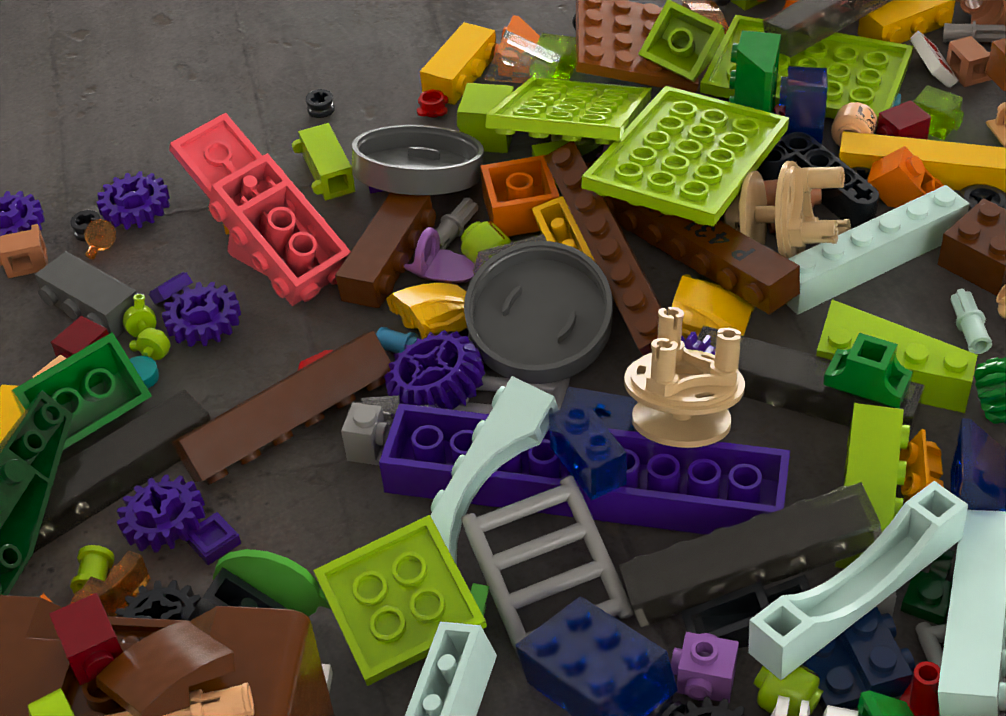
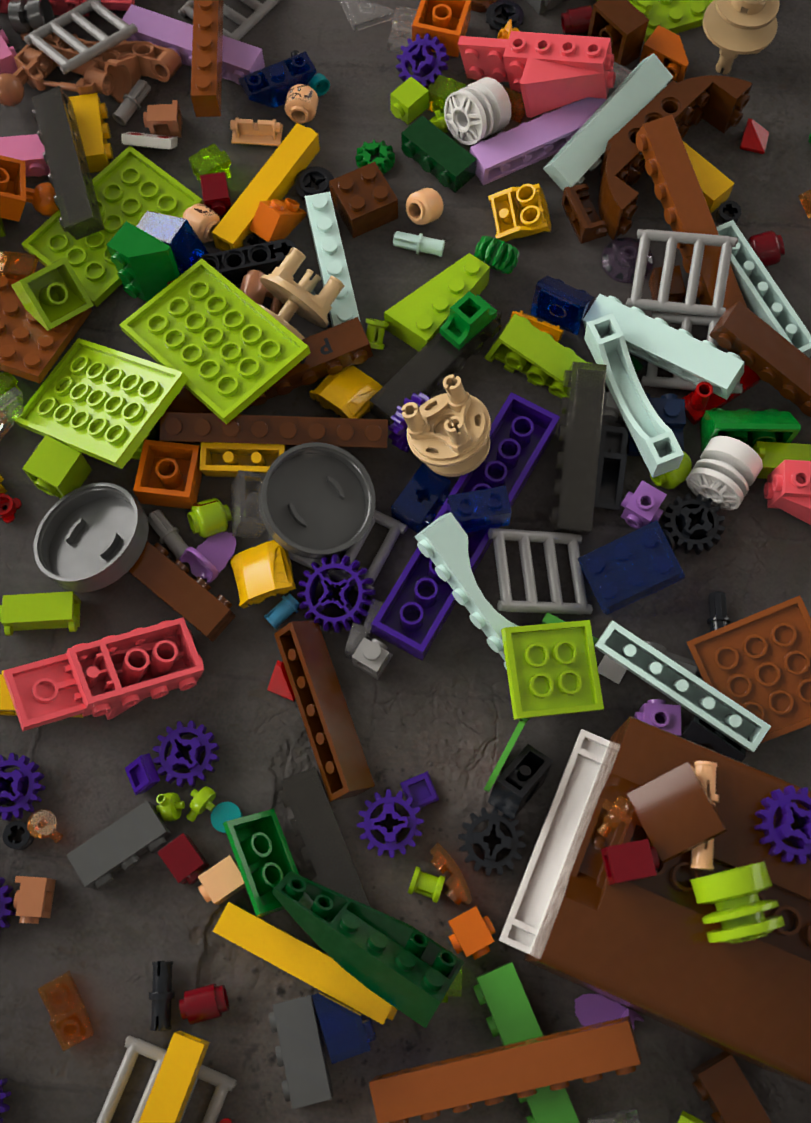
camera: 75 degrees left, 25 degrees up
(153, 611) = (616, 813): none -> clear orange piece
(804, 310) = (375, 332): none -> lime bush

